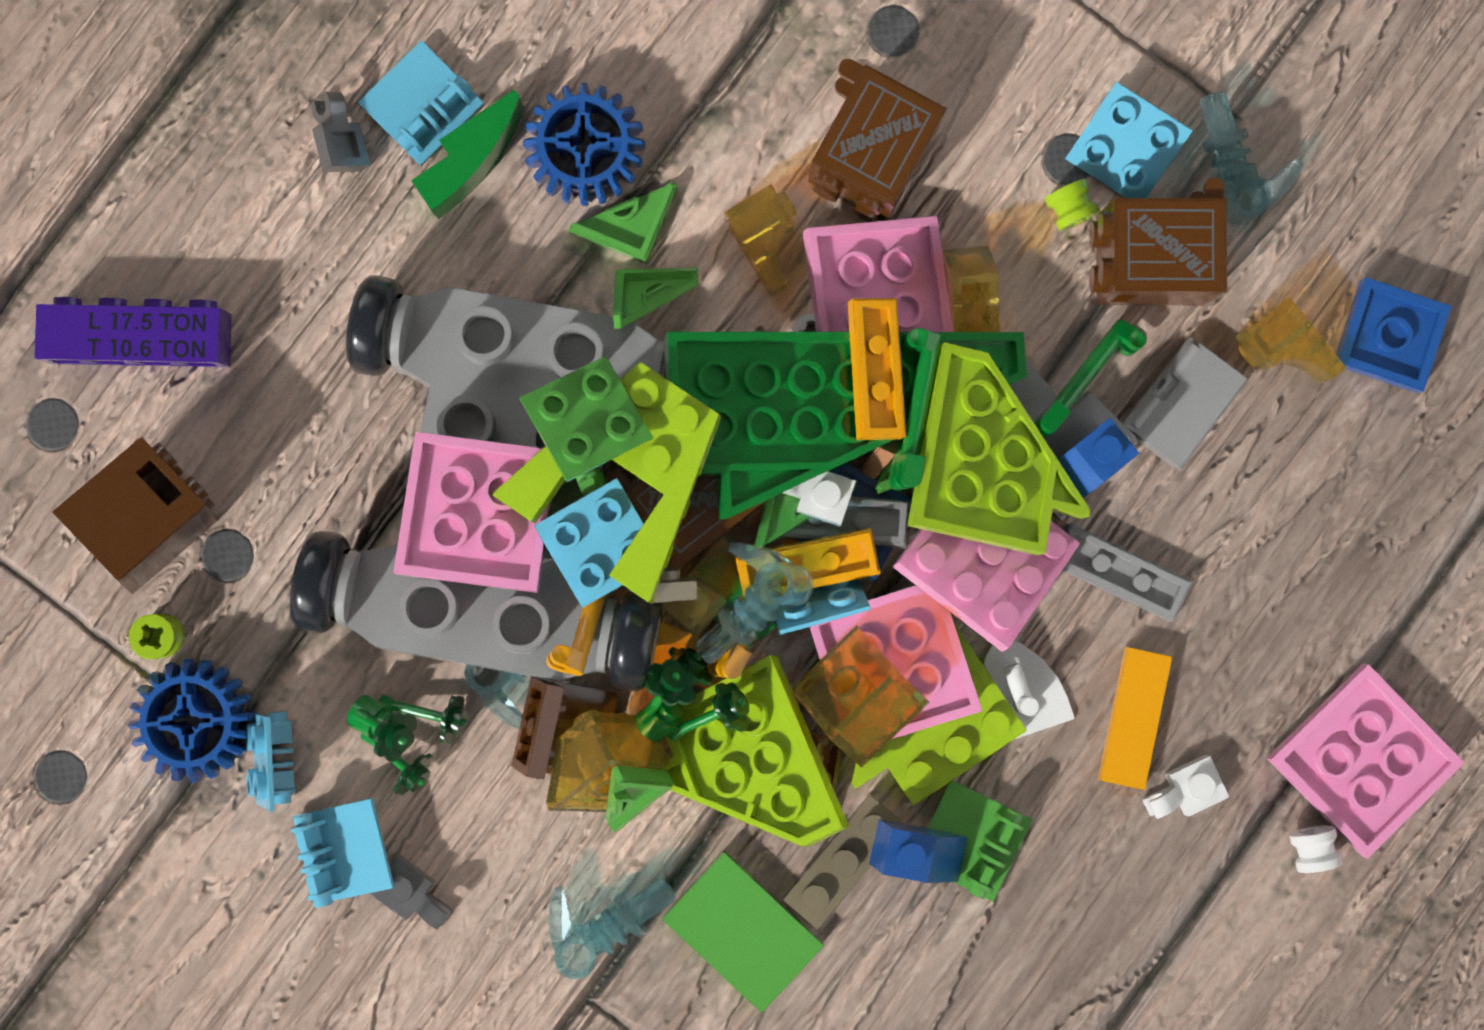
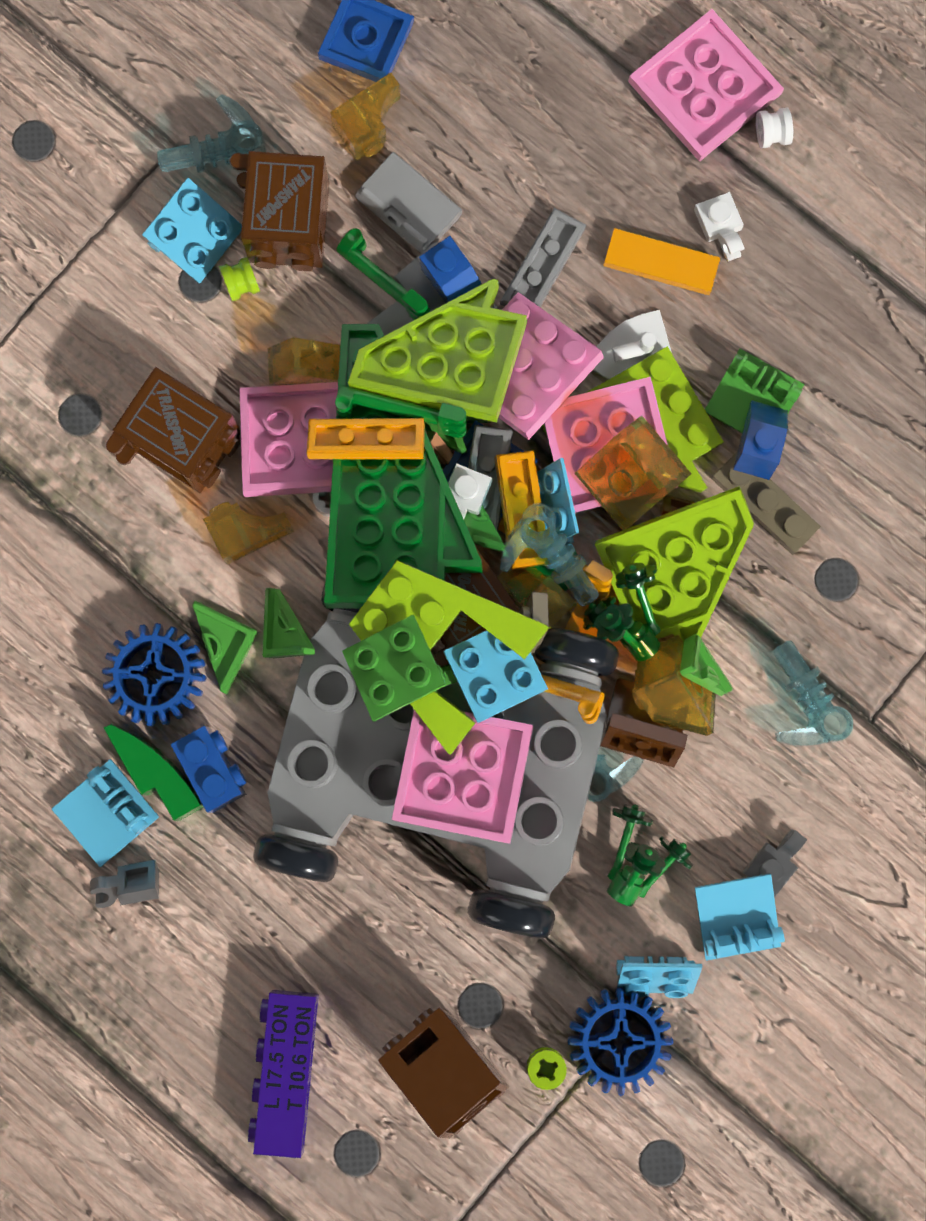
camera: 85 degrees left, 5 degrees down
(476, 218) = (209, 769): none -> blue brick
(742, 931) = (819, 588): bright green tile -> none

